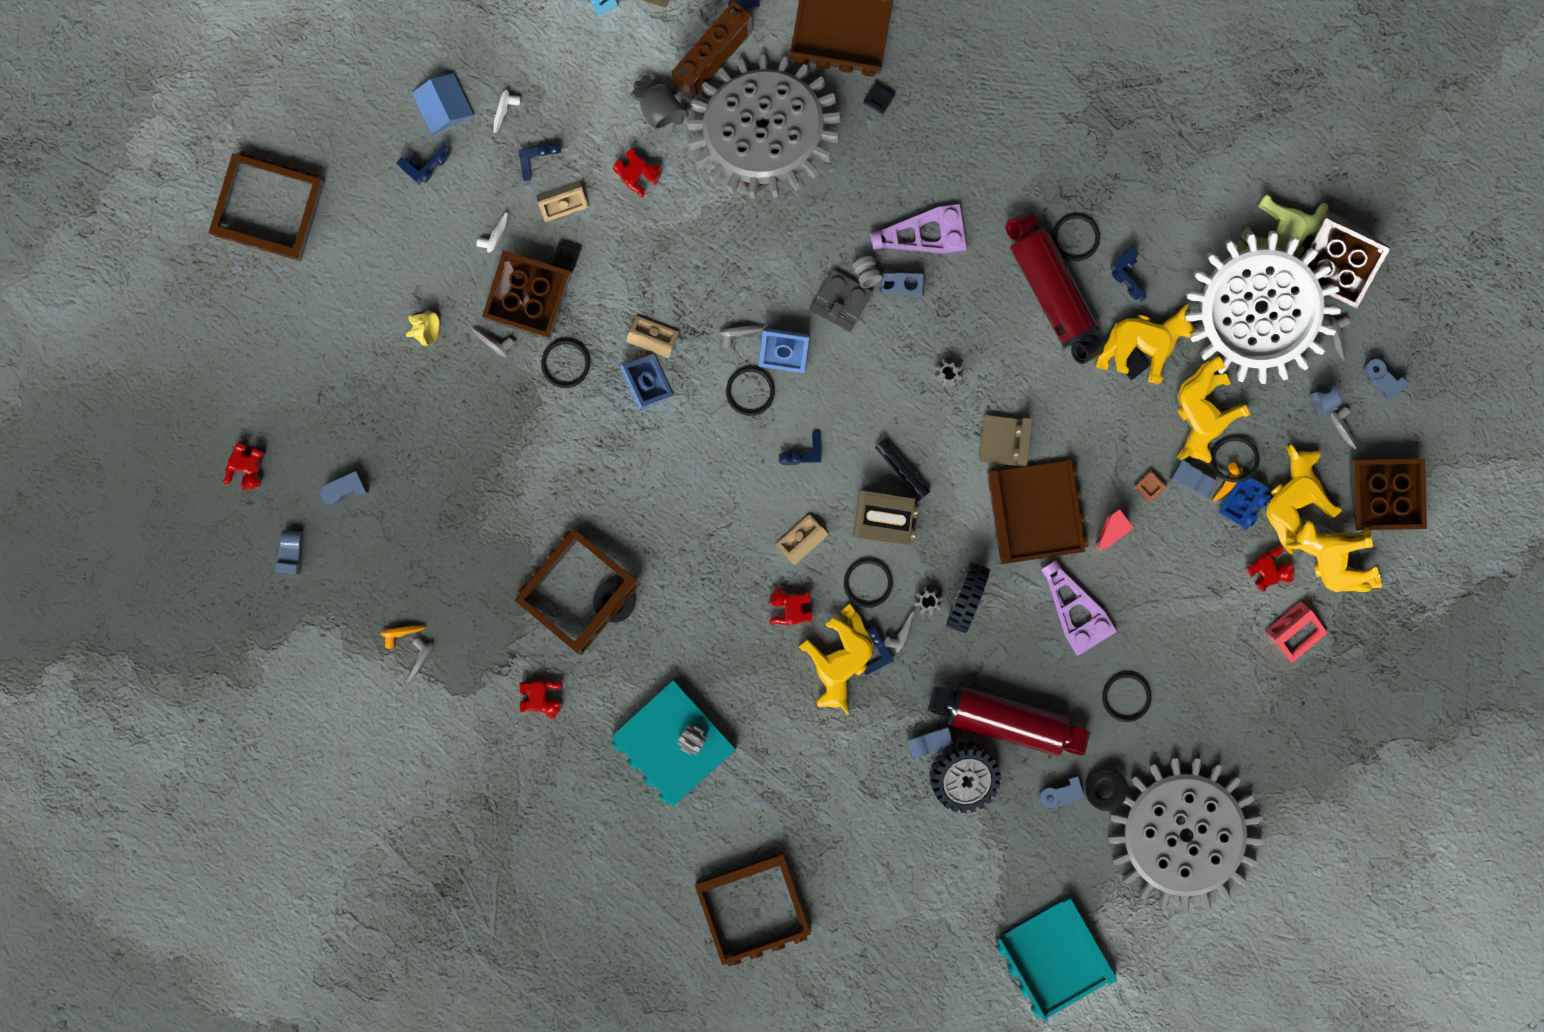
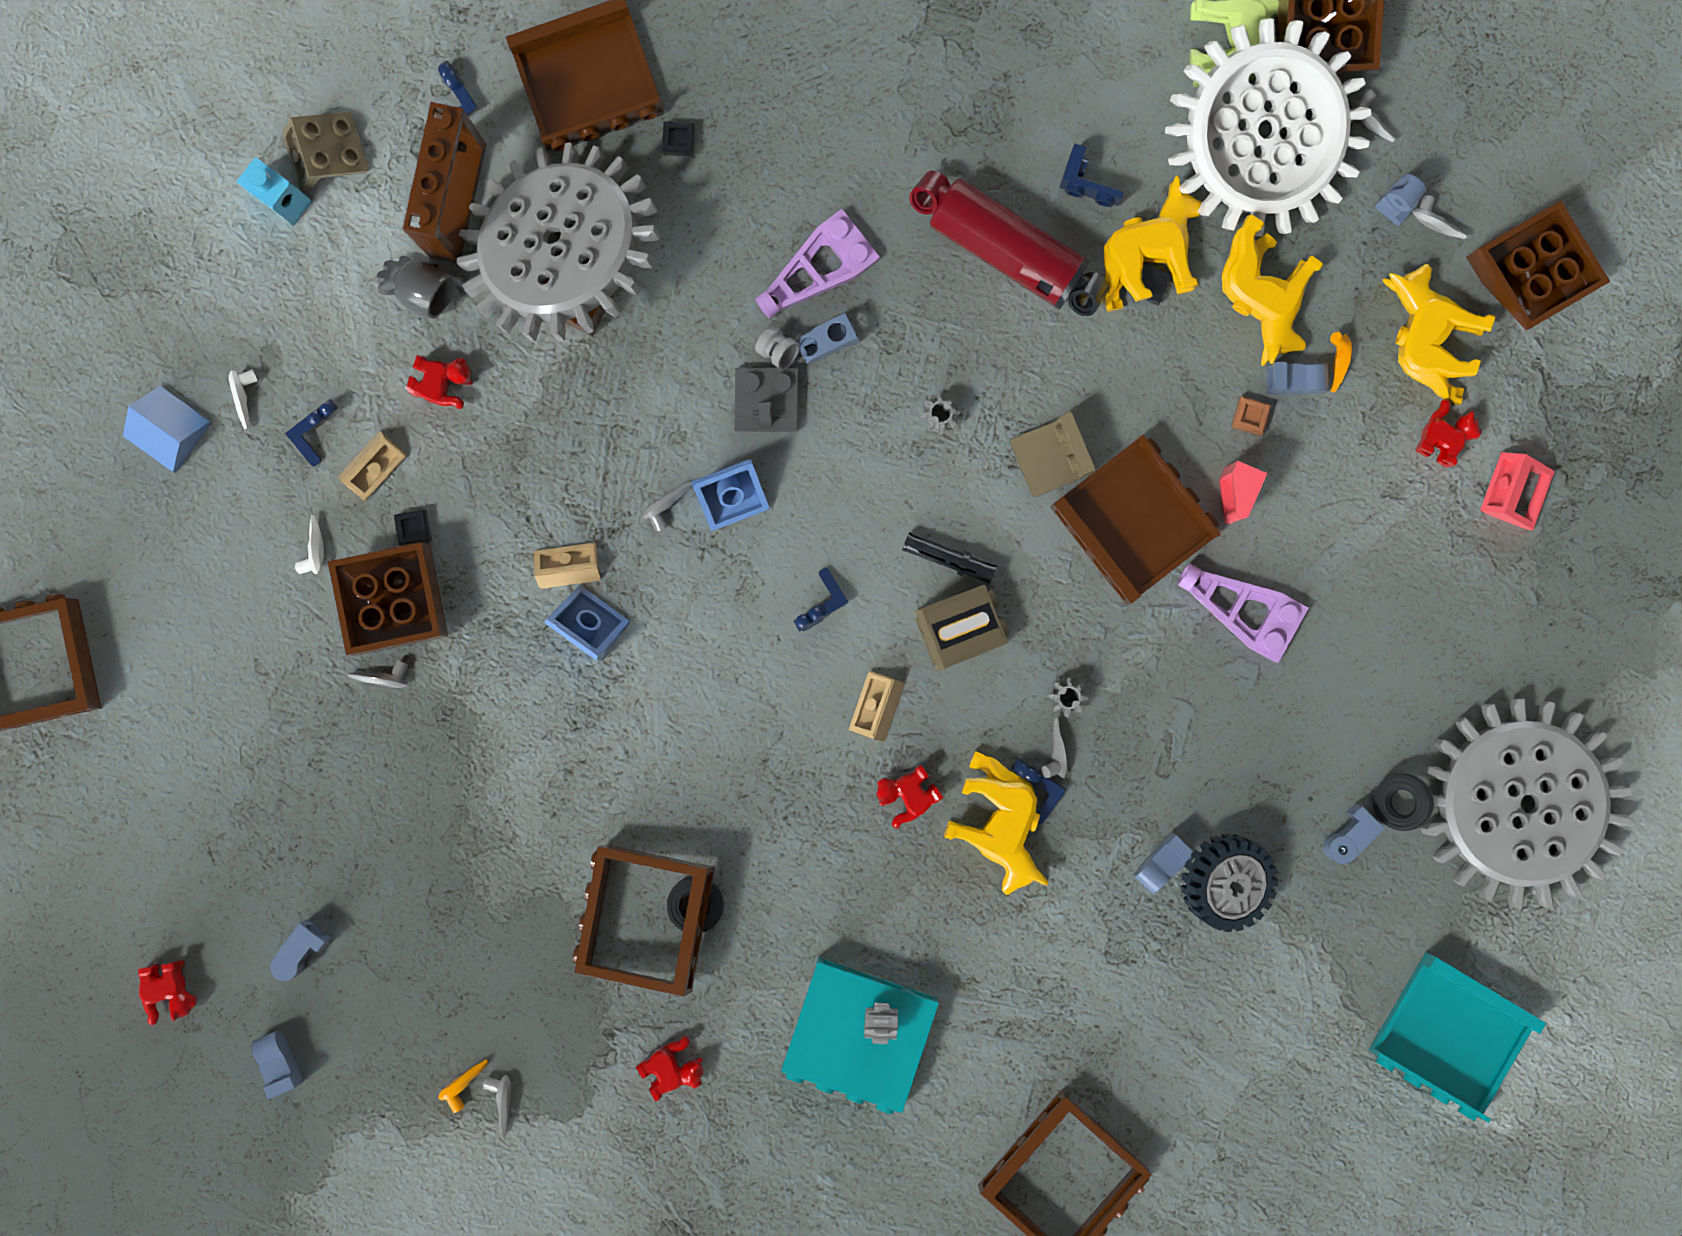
camera: 30 degrees left, 0 degrees up
(411, 167) = (188, 521): dark blue bracket -> none
(424, 328) = (291, 705): light yellow piece -> none
(579, 380) = (482, 684): black tyre -> none
(771, 385) = (718, 536): black tyre -> none
(846, 583) = (953, 714): black tyre -> none
(968, 597) = (1114, 666): black wheel -> none
(1009, 721) = (1243, 786): dark red piece -> none
(1096, 231) = (1028, 169): black piece -> none
(1105, 702) = (1392, 679): black tyre -> none
(1230, 479) = (1334, 300): black tyre -> none
(1245, 502) = (1373, 370): blue bracket -> none
(1332, 557) = (1517, 375): yellow animal -> none
(1382, 380) = (1452, 139): sand blue leg -> none

